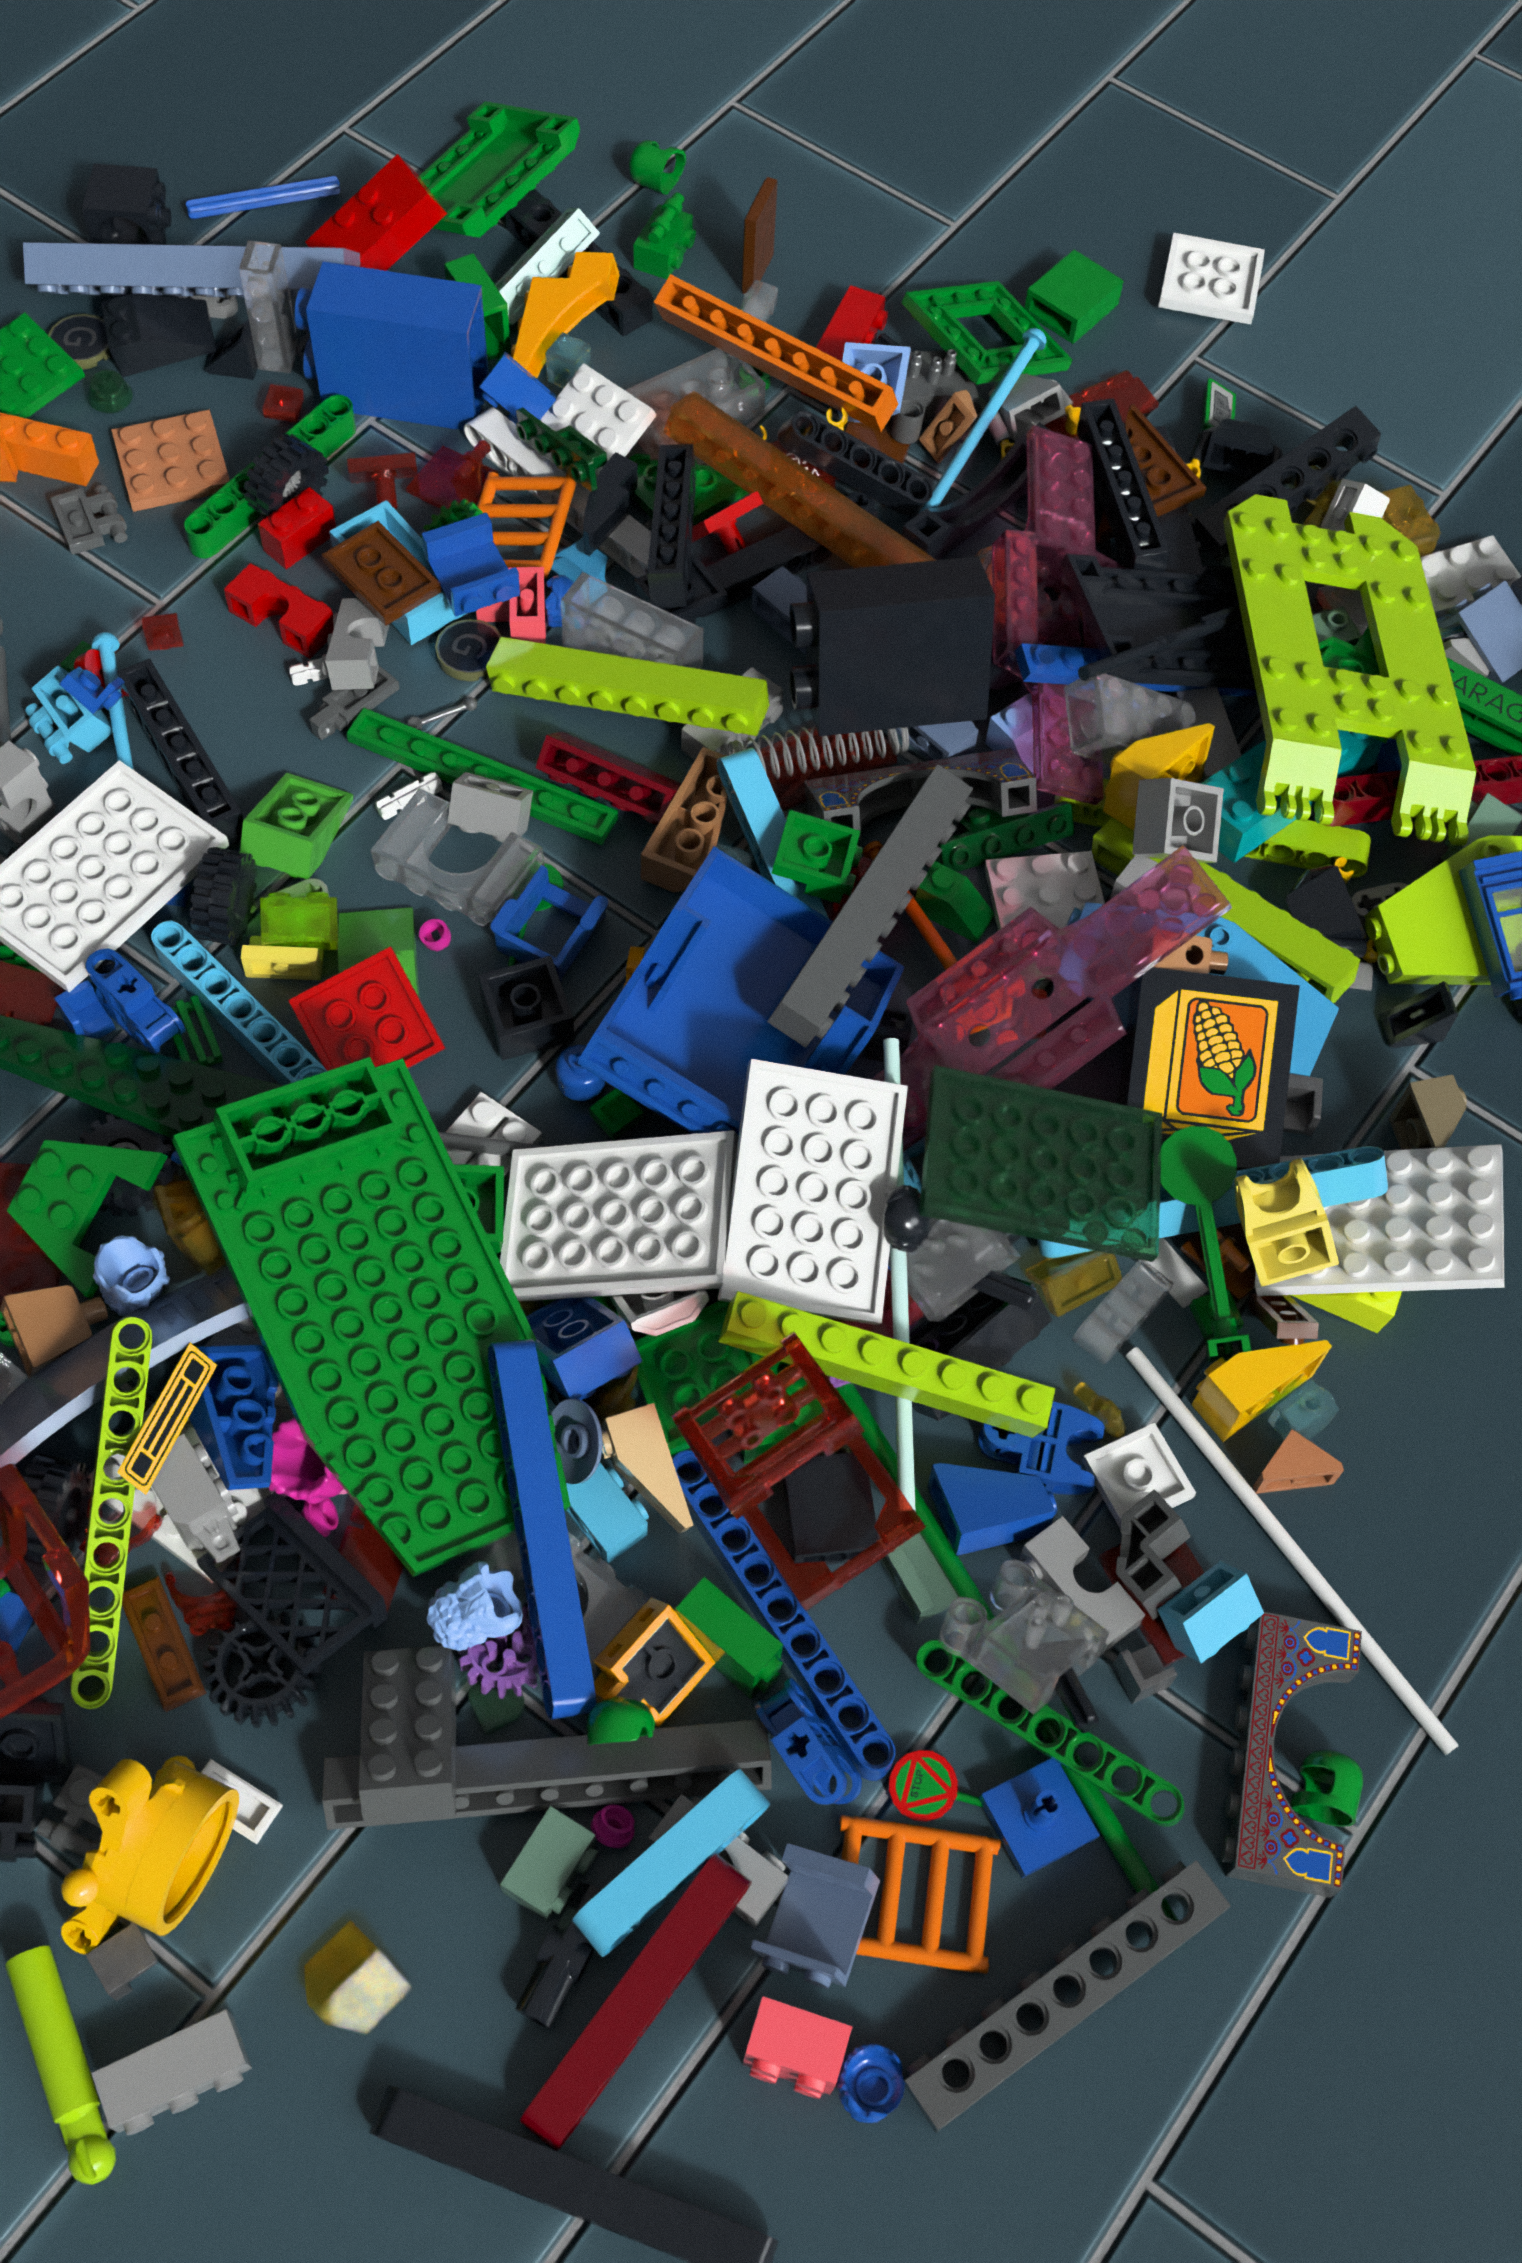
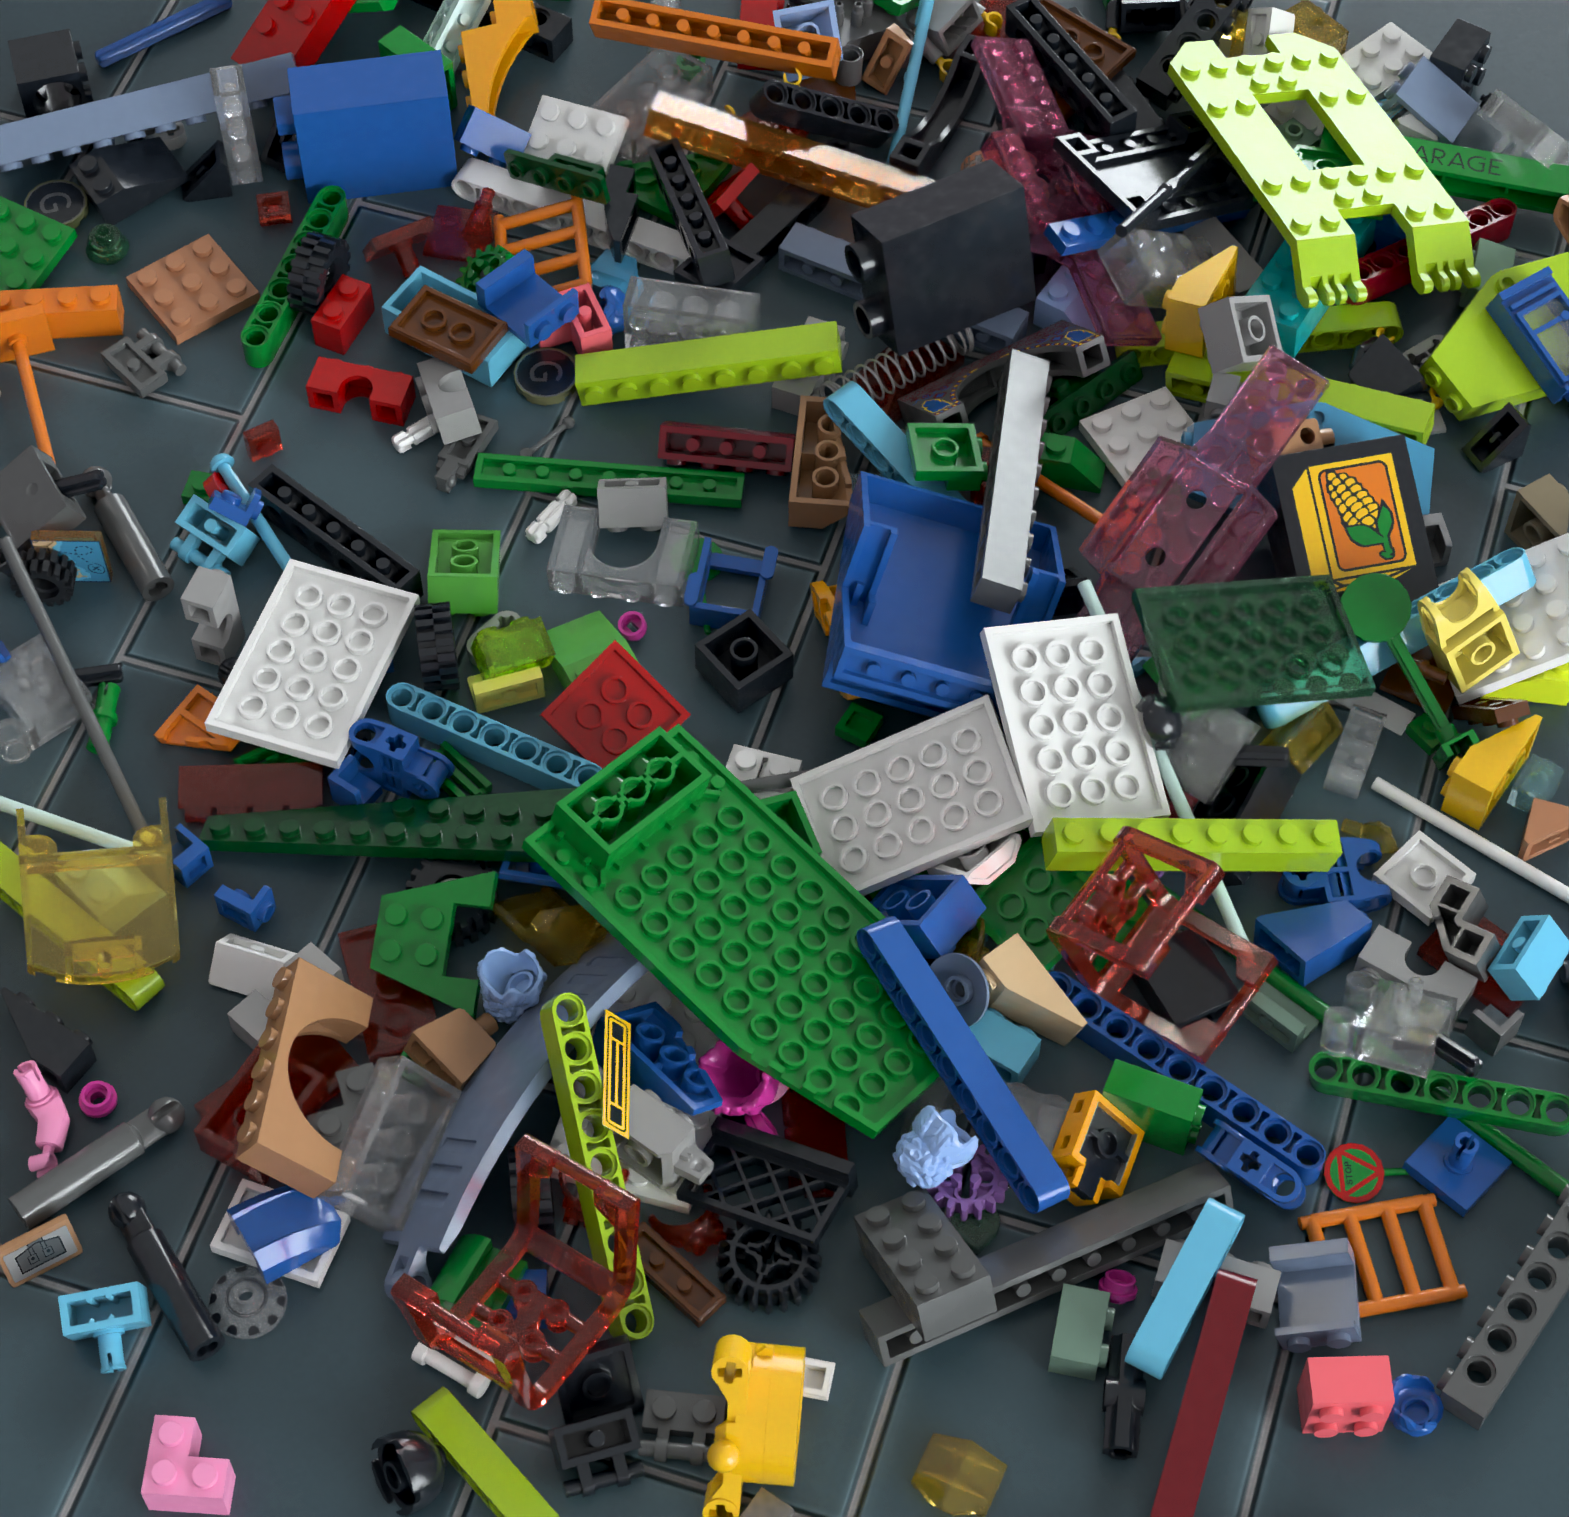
camera: 15 degrees left, 5 degrees down
(565, 359) = (519, 99): clear light blue brick -> none
(575, 1080) = (812, 702): blue head -> none
(619, 1721) = (1095, 1192): green hair -> none

